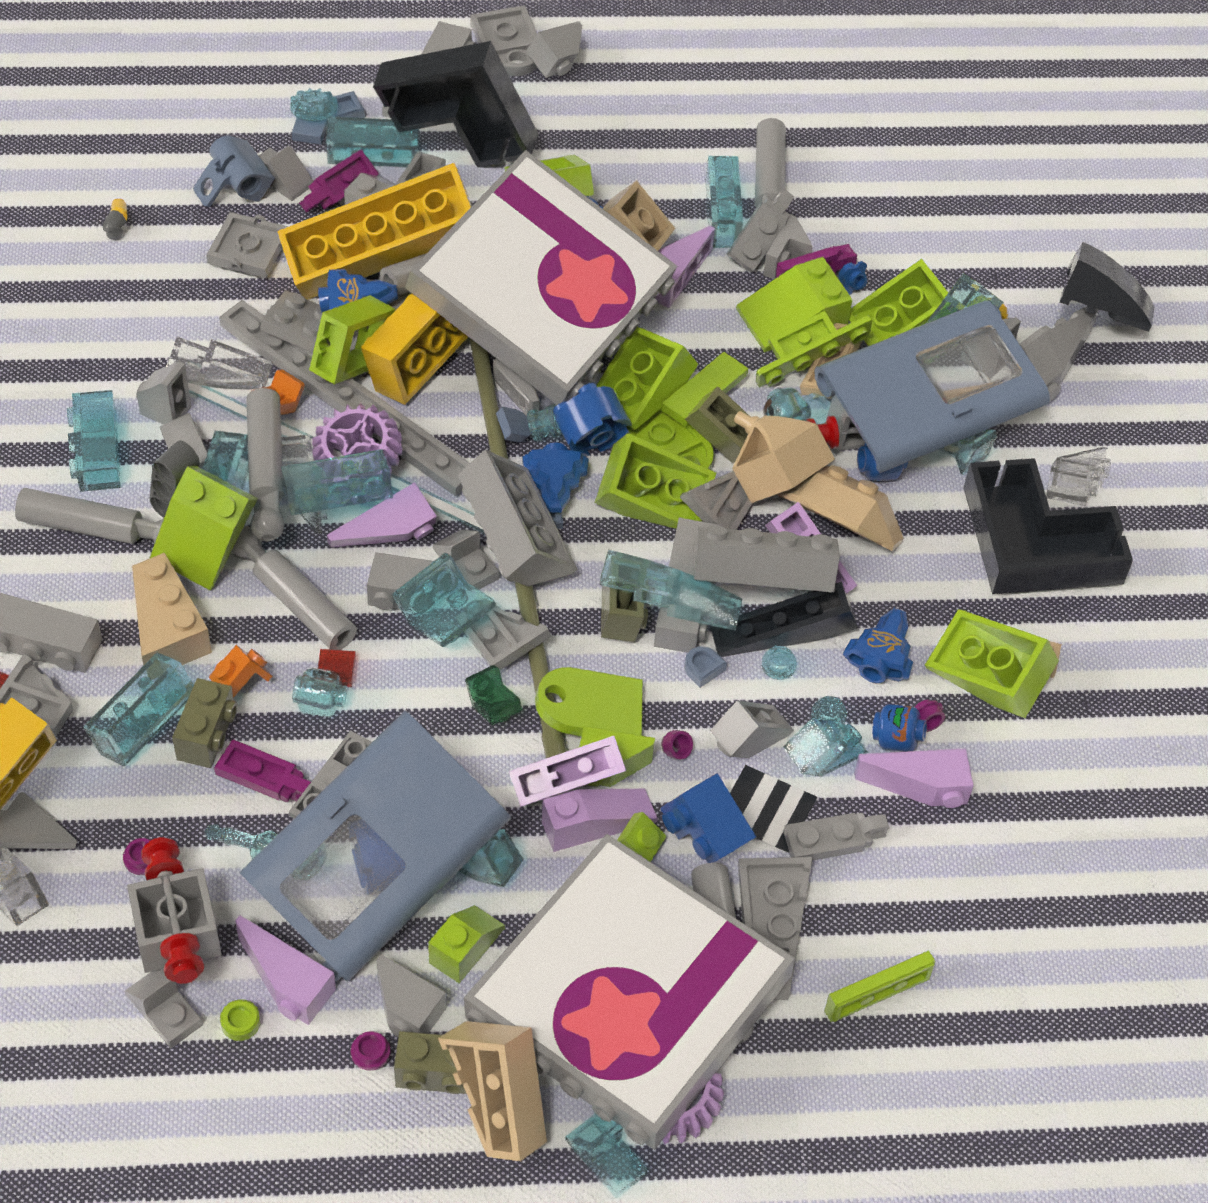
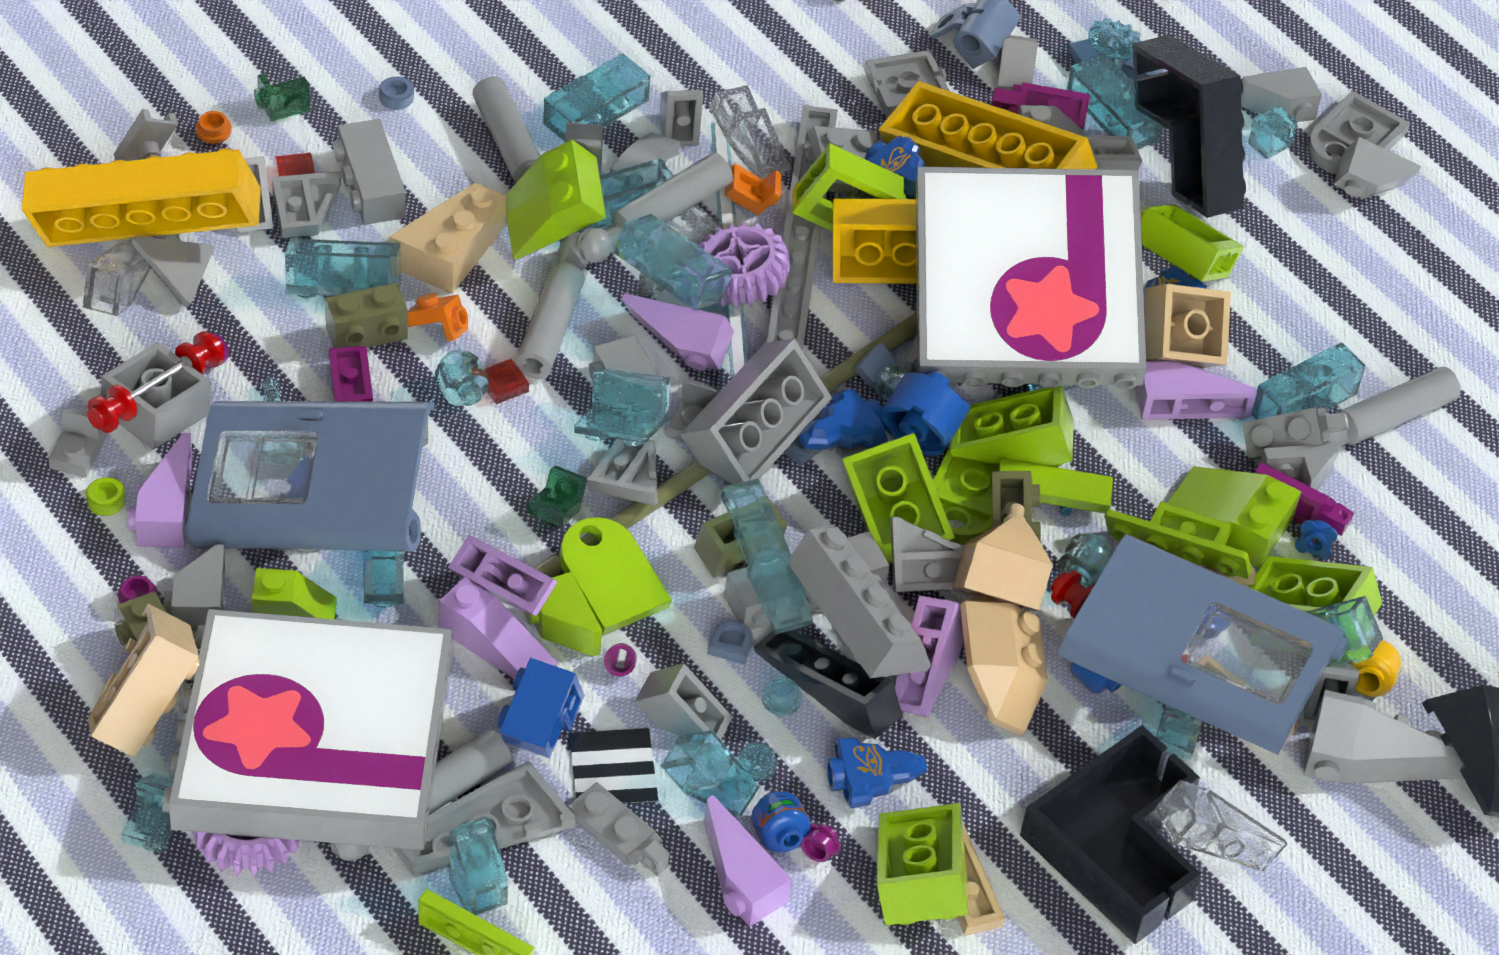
camera: 55 degrees right, 5 degrees down
(642, 836) = (494, 679): lime plate -> none
(826, 949) = (477, 867): none -> clear light blue slope

